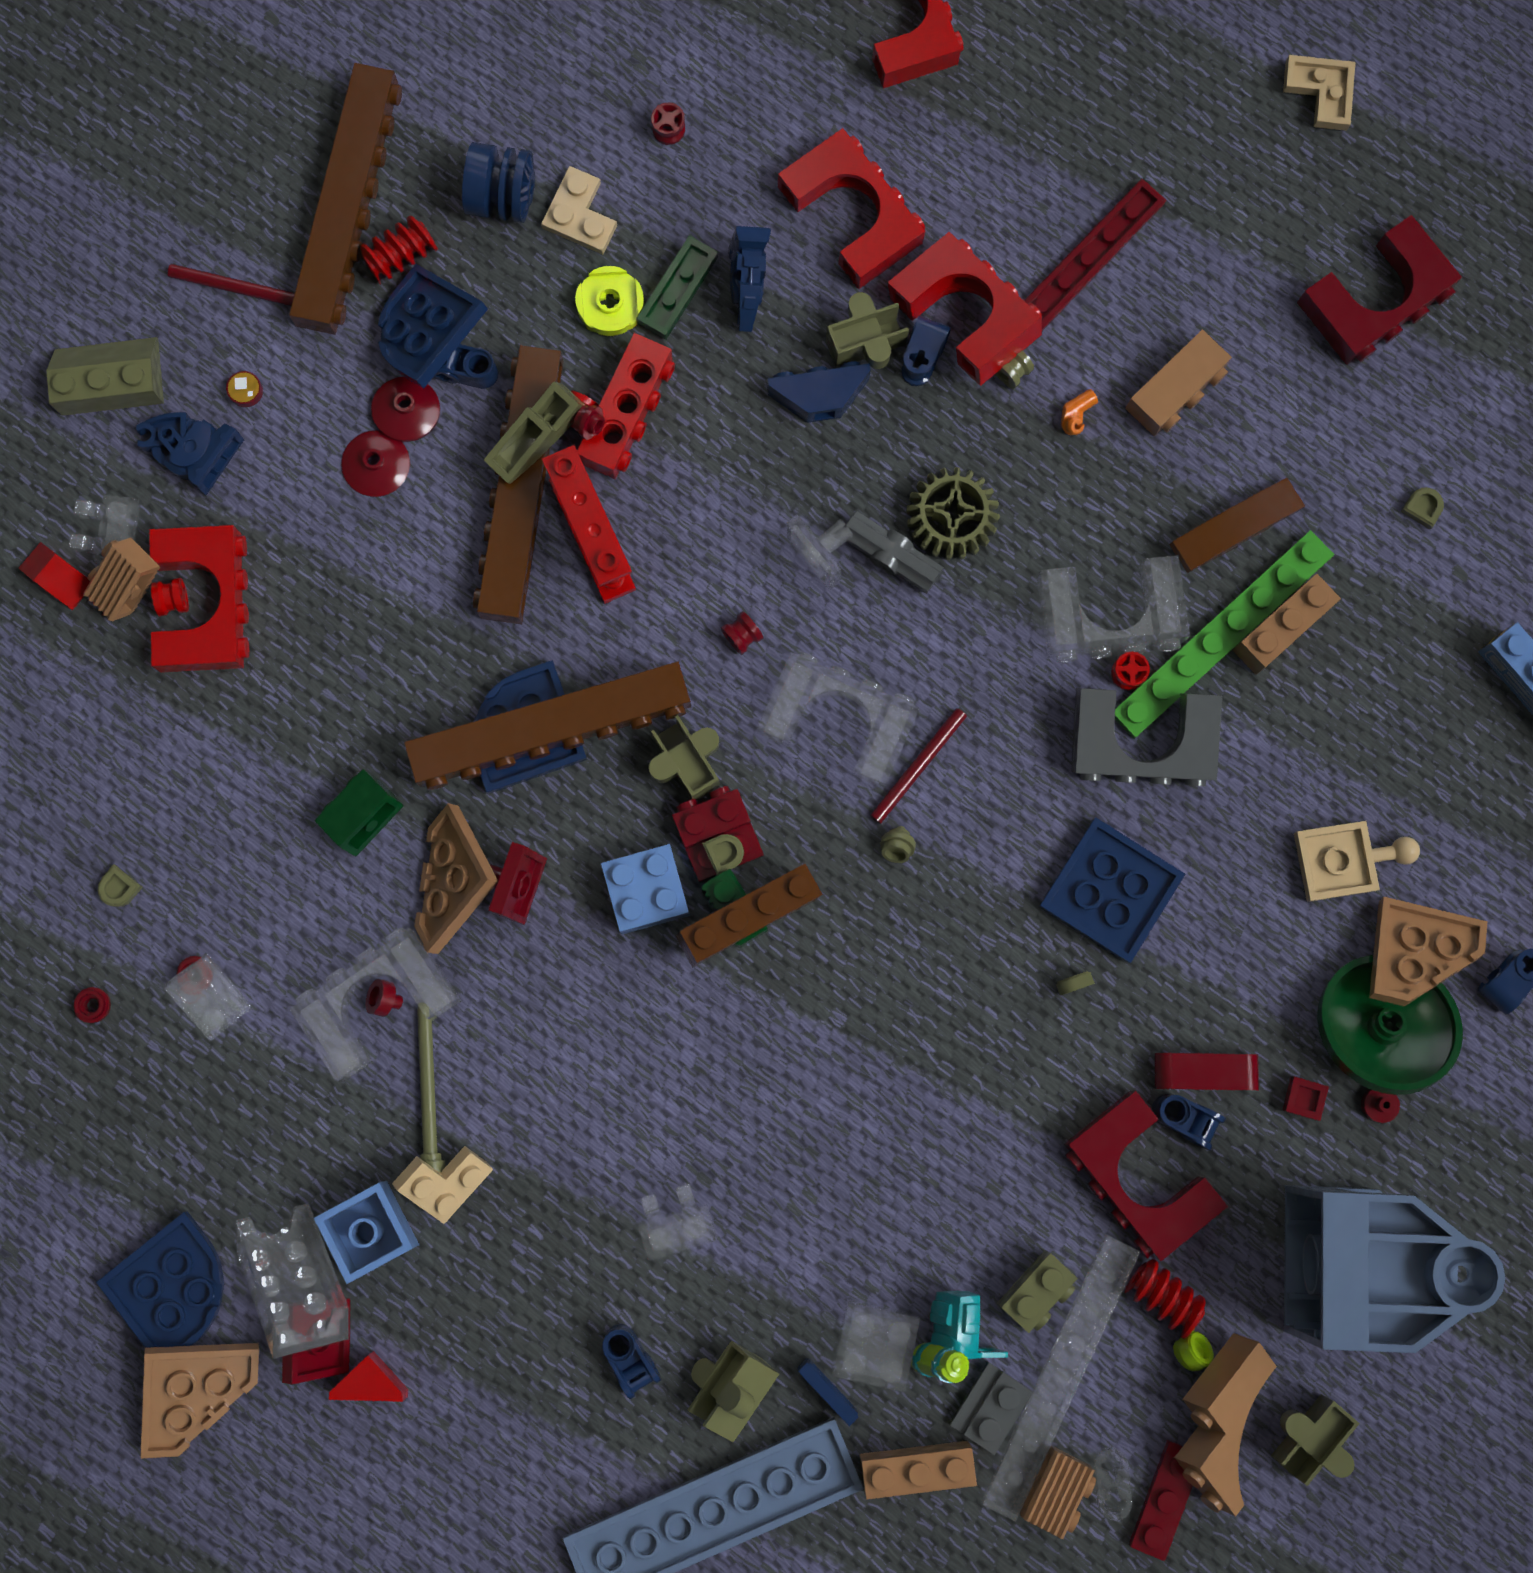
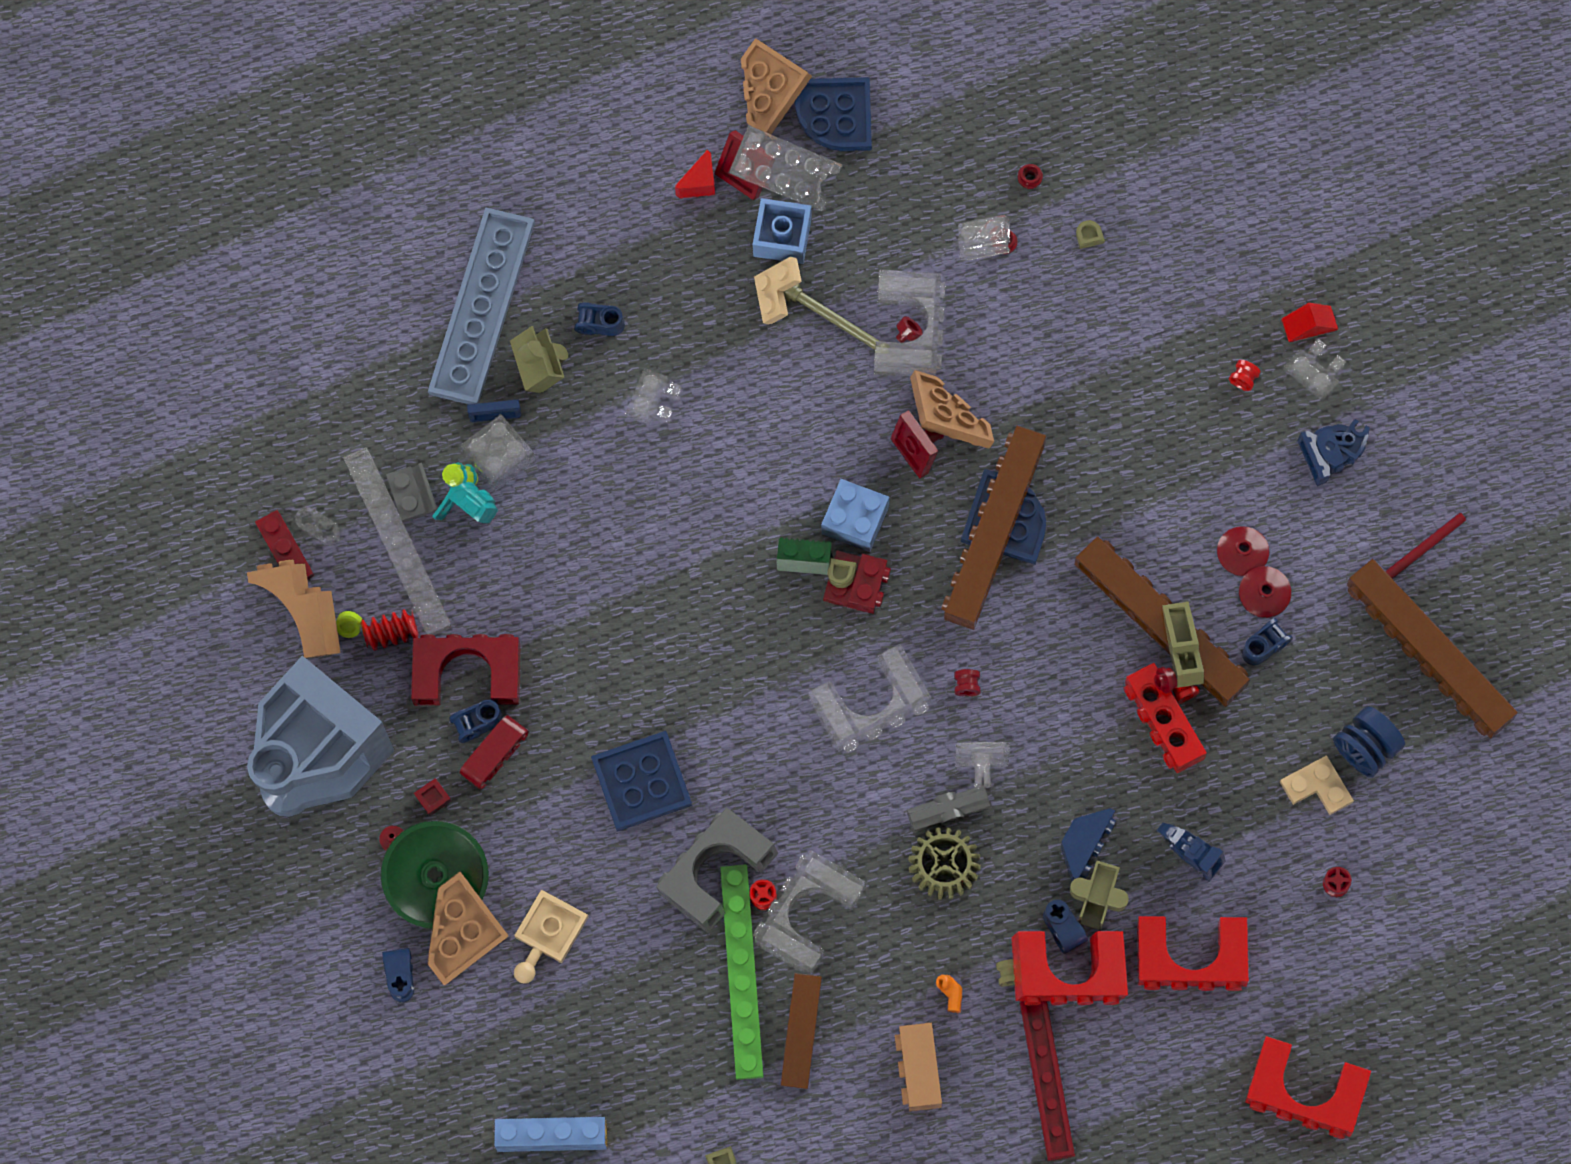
camera: 135 degrees right, 10 degrees down
(105, 377) = (1418, 432): olive slope -> none
(120, 578) = (1274, 352): medium nougat brick -> none
(221, 639) = (1248, 419): red arch -> none
(244, 389) = (1349, 507): tile -> none
(359, 812) = (1027, 389): dark green brick -> none
(397, 248) = (1370, 656): red piece -> none
(425, 324) = (1306, 633): dark blue plate -> none
(589, 524) = (1100, 635): red fence -> none
(594, 290) = (1244, 775): neon yellow plate -> none
(677, 287) = (1220, 807): dark green plate -> none
(686, 757) = (915, 591): olive piece -> none
(748, 915) = (791, 554): reddish brown arch -> none
(897, 845) = (768, 679): olive plate -> none
(918, 765) = (805, 728): dark red bar -> none
(918, 1470) = (413, 426): medium nougat brick -> none
(1038, 1292) = (453, 561): olive brick -> none
(1058, 1493) = (338, 491): medium nougat brick -> none
(1074, 983) = (605, 717): olive tile -> none
(1286, 624) = (716, 1009): medium nougat brick -> none
(1316, 1441) = (248, 649): olive piece -> none

